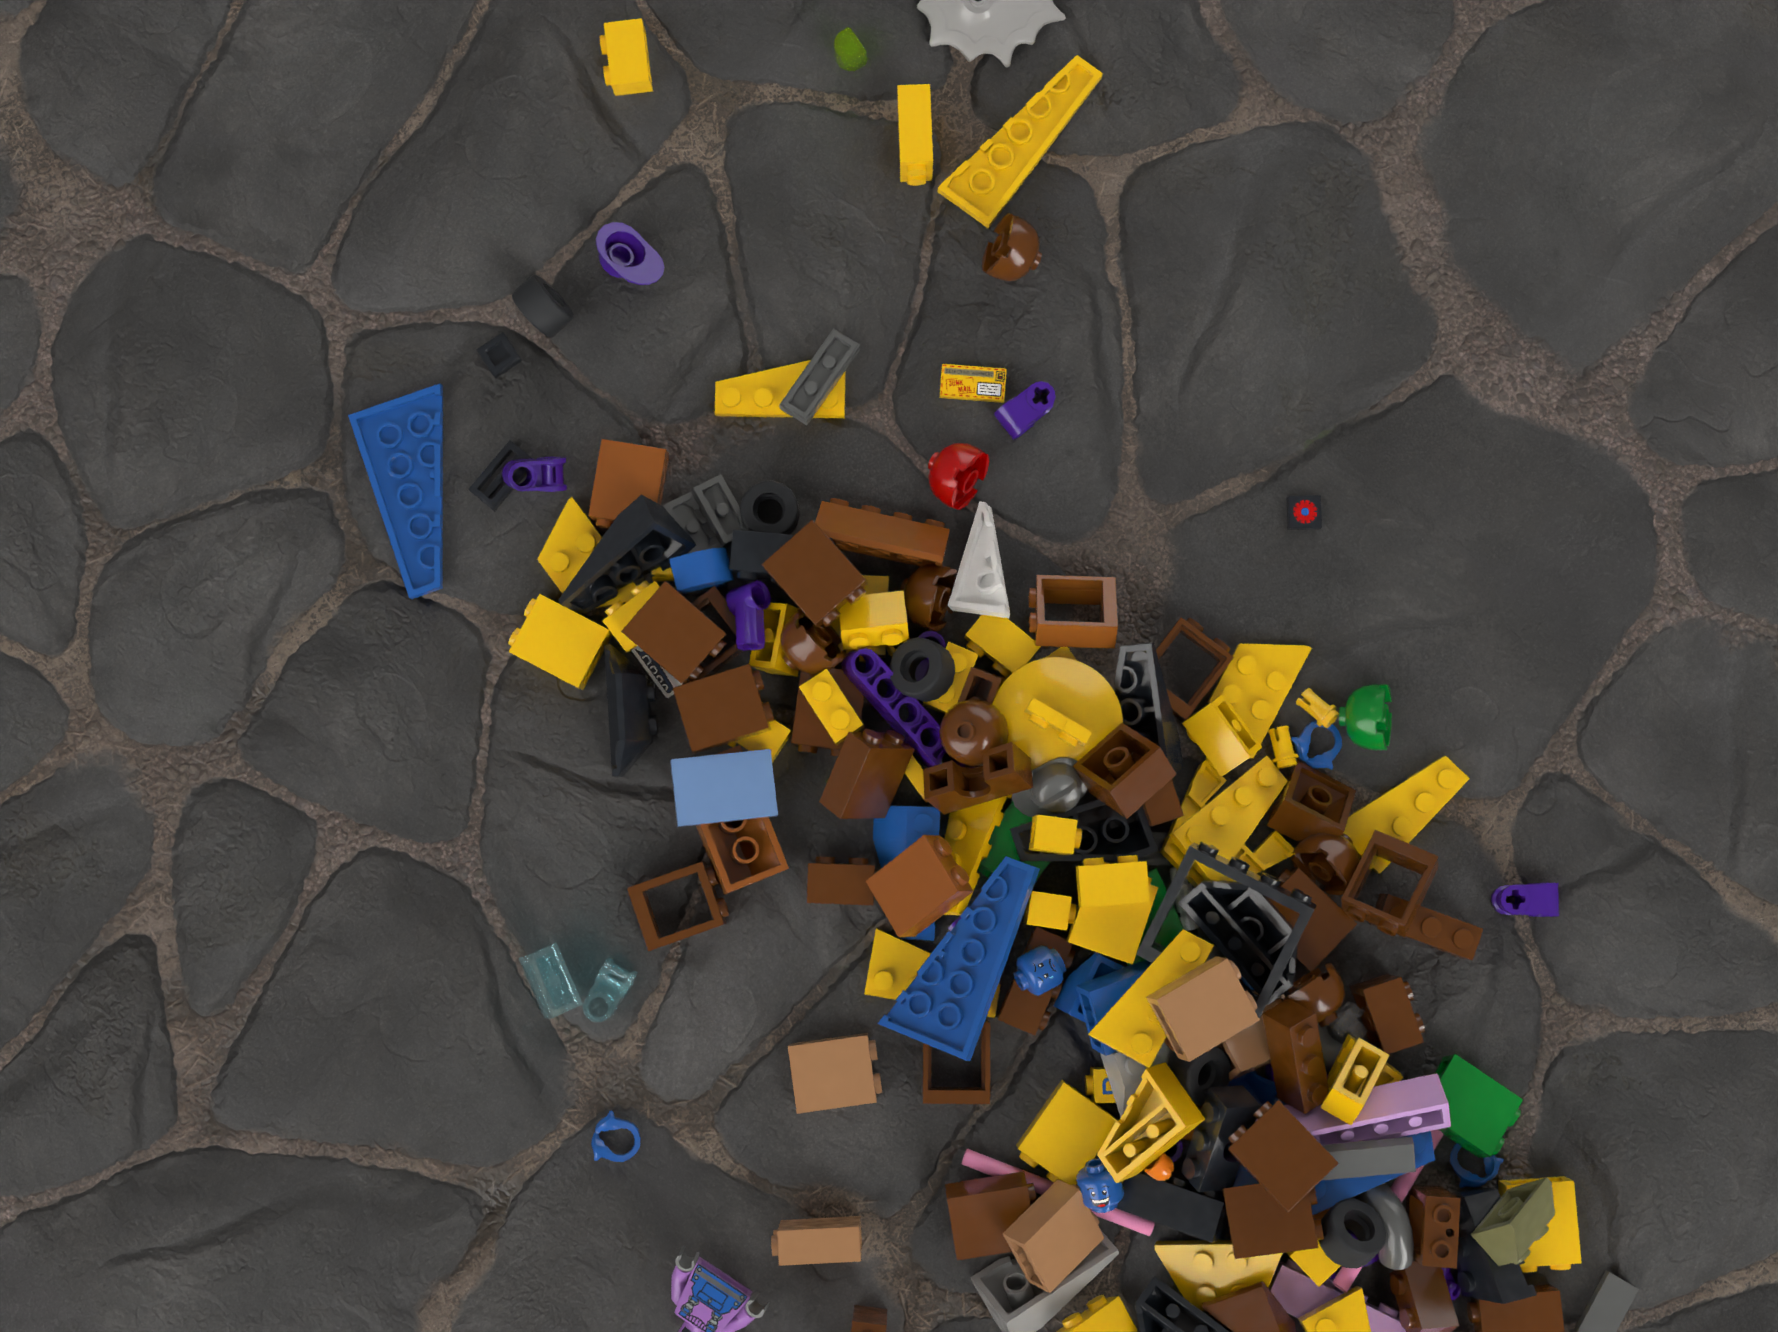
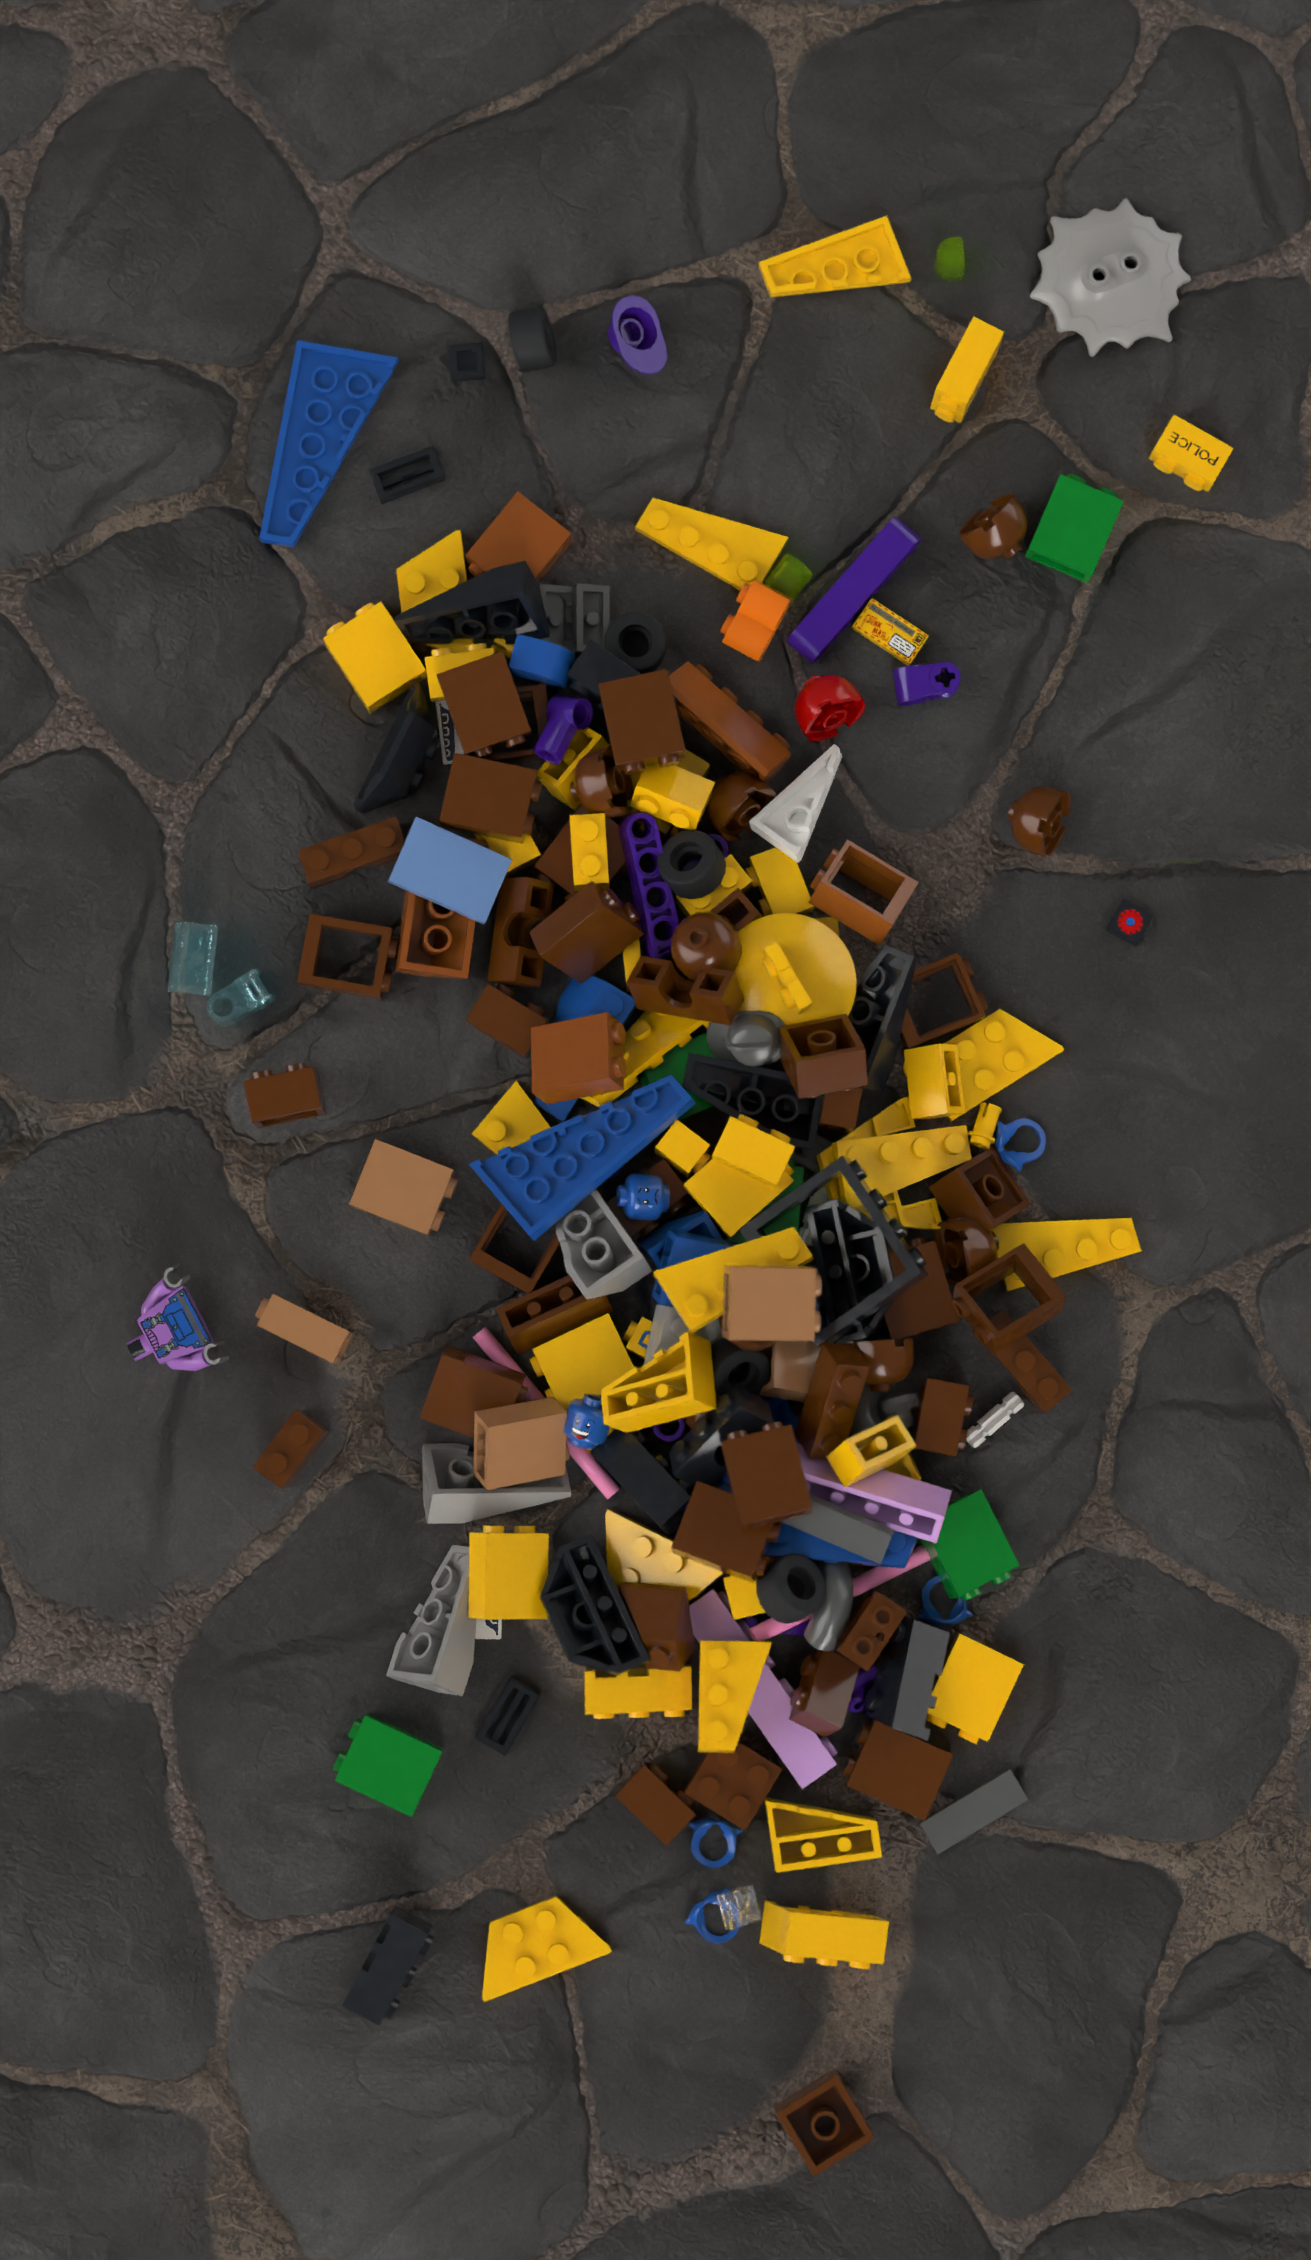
camera: 20 degrees right, 0 degrees up
(542, 474) = (445, 492): dark purple piece -> none
(611, 1122) = (174, 1120): blue piece -> none
(627, 57) = (741, 151): yellow brick -> none
(633, 815) = (360, 848): none -> reddish brown arch
(693, 1054) = (284, 1096): none -> reddish brown brick
(761, 101) = (846, 260): none -> yellow wing
(797, 786) = (518, 908): none -> reddish brown arch
(820, 377) = (751, 546): dark grey tile -> none
(858, 435) = (755, 620): none -> orange brick
(864, 385) = (789, 576): none -> clear neon green brick
(924, 365) = (854, 590): none -> dark purple beam
(1004, 162) = (1038, 442): yellow wing -> none
(1017, 1104) = (549, 1314): none -> reddish brown brick
(1028, 1037) = (598, 1249): none -> light grey wedge
(1054, 835) = (726, 1079): yellow brick -> none
(1075, 213) = (1074, 527): none -> green brick
(1135, 101) = (1190, 454): none -> yellow brick
(1161, 1168) = (652, 1437): orange hinge -> none
(1183, 469) = (1038, 819): none -> reddish brown cylinder
(1318, 708) = (1040, 1115): yellow pin -> none
(1368, 717) = (1078, 1141): green cylinder -> none
(1429, 986) = (994, 1419): none -> white axle
(1516, 1222) = (947, 1665): olive slope -> none
(1530, 899) = (1136, 1392): dark purple piece -> none

